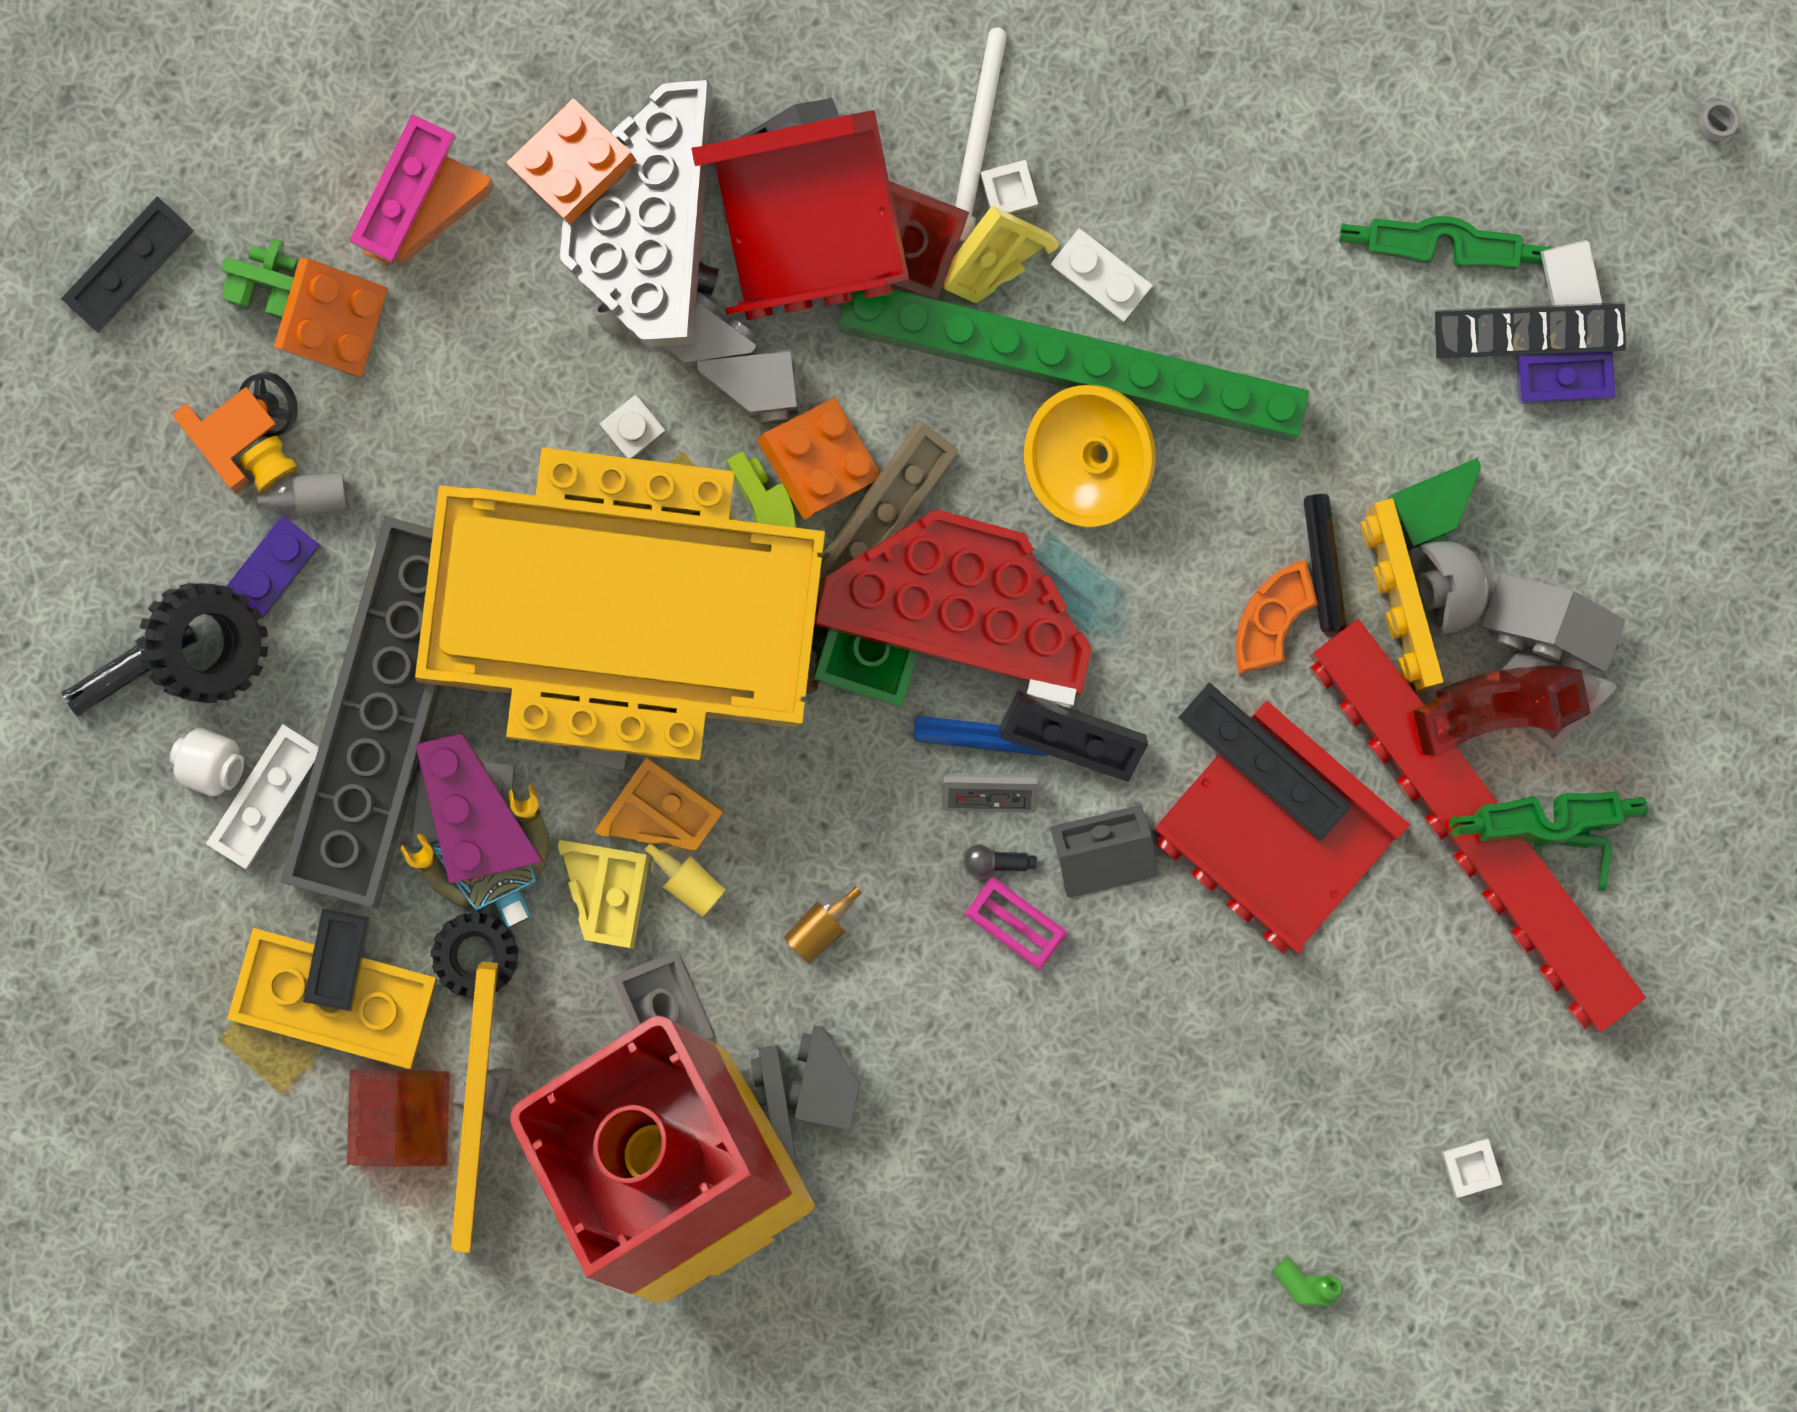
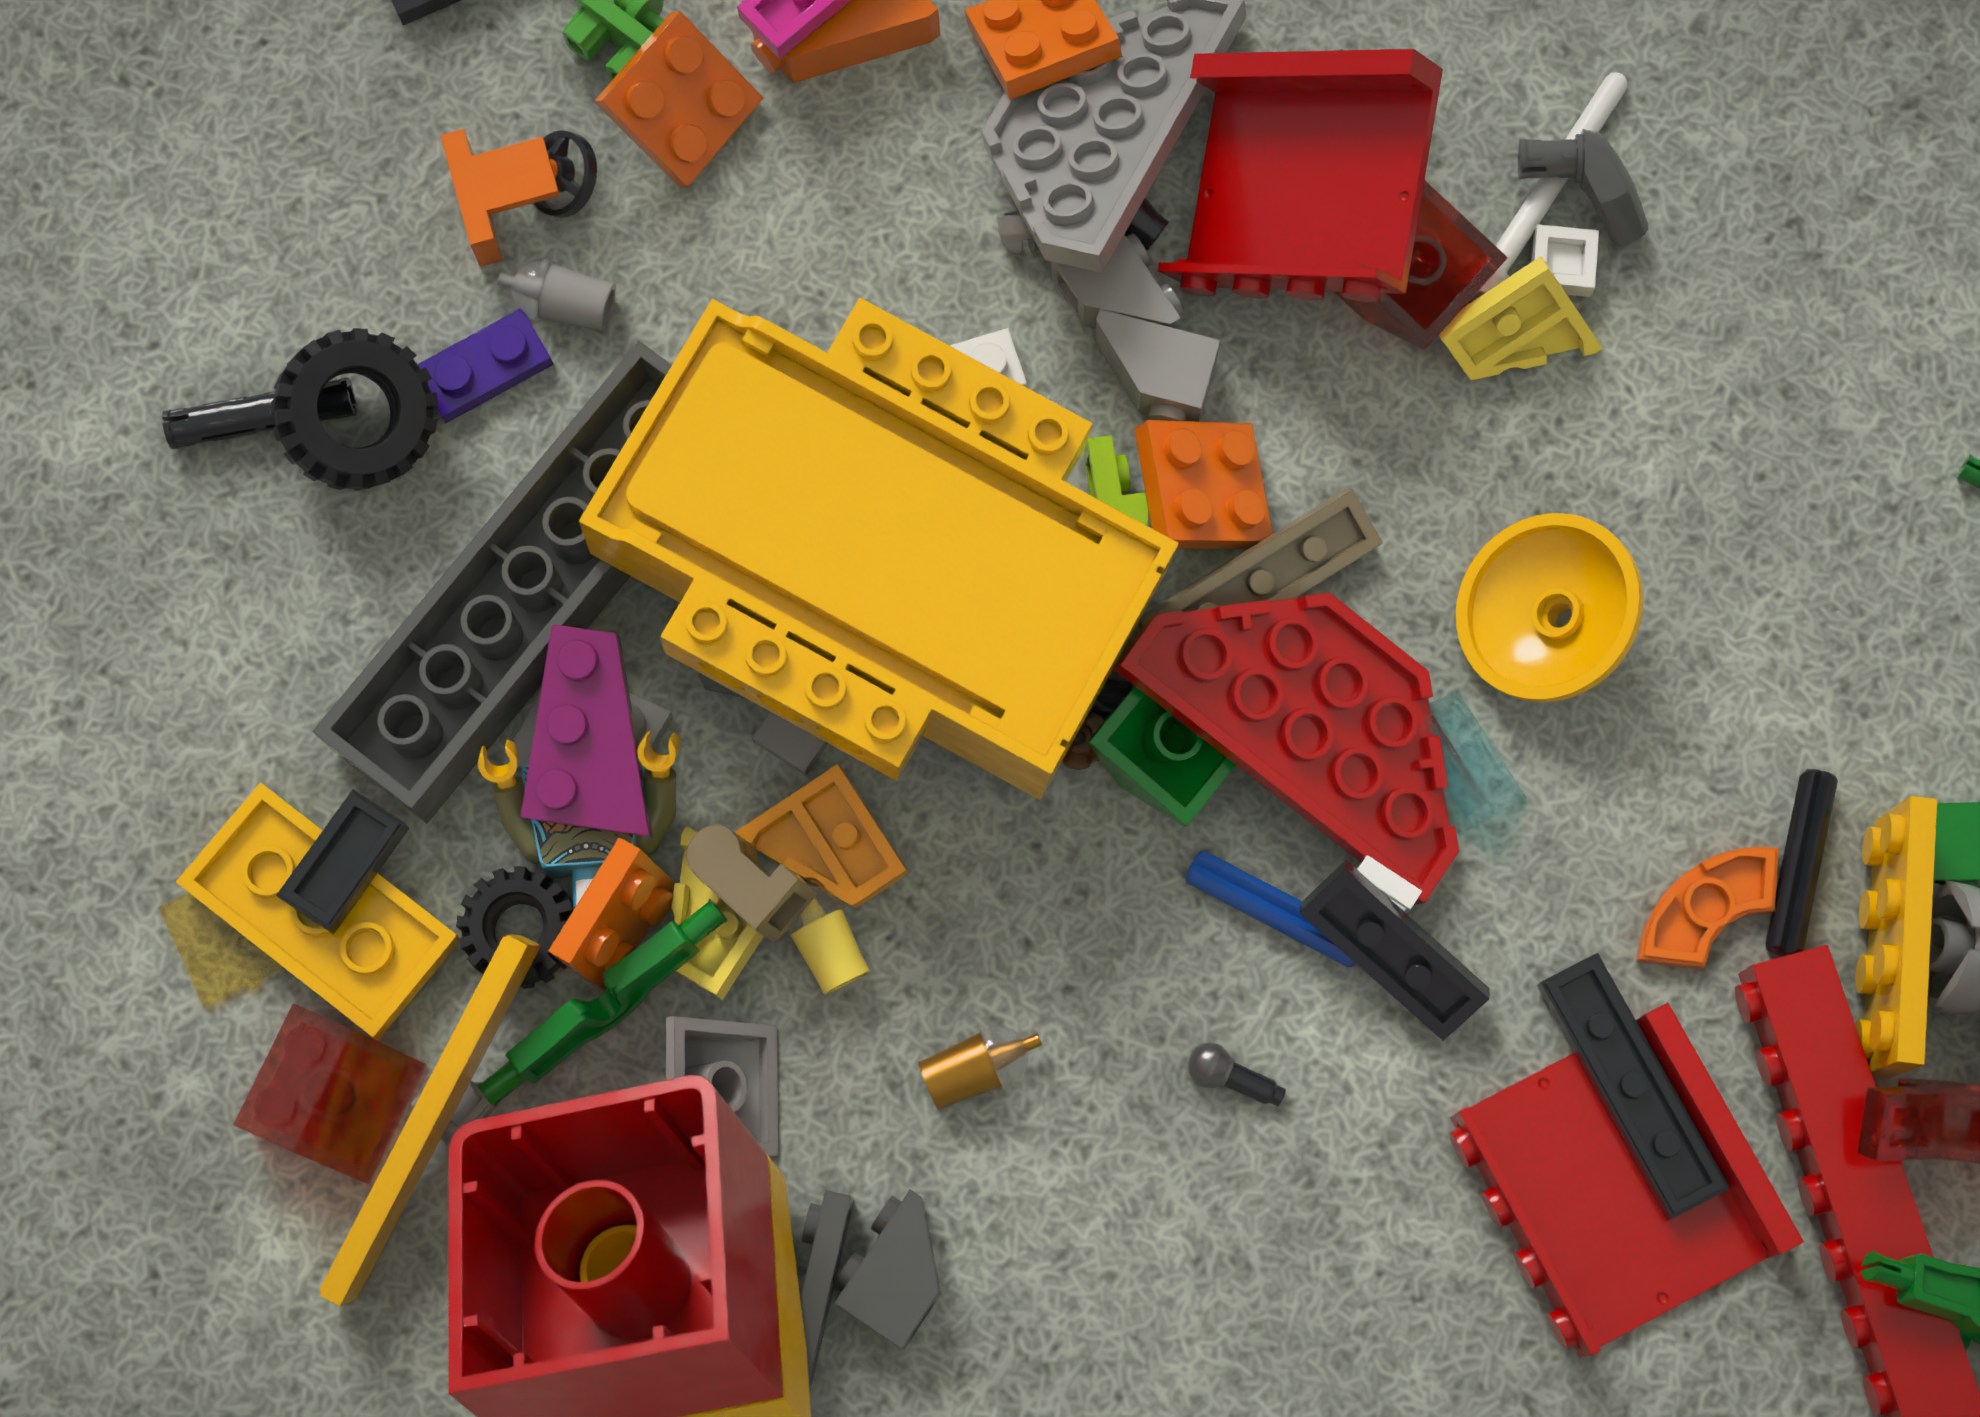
camera: 30 degrees right, 10 degrees down
(207, 762) = (297, 560): white head -> none
(264, 797) = (342, 632): white plate -> none
(267, 463) = (530, 237): yellow wheel -> none
(538, 931) = (614, 913): none -> orange plate
(549, 999) = (582, 1021): none -> green piece
(605, 861) = (733, 873): none -> dark tan leg
(989, 792) = (1258, 982): slope -> none
(1010, 116) = (1600, 176): none -> dark grey arm
(1047, 946) = (1255, 1214): dark pink tile -> none
(1077, 360) = (1554, 474): green brick -> none
(1101, 275) = (1640, 405): white plate -> none
(1105, 851) = (1379, 1119): dark grey panel -> none

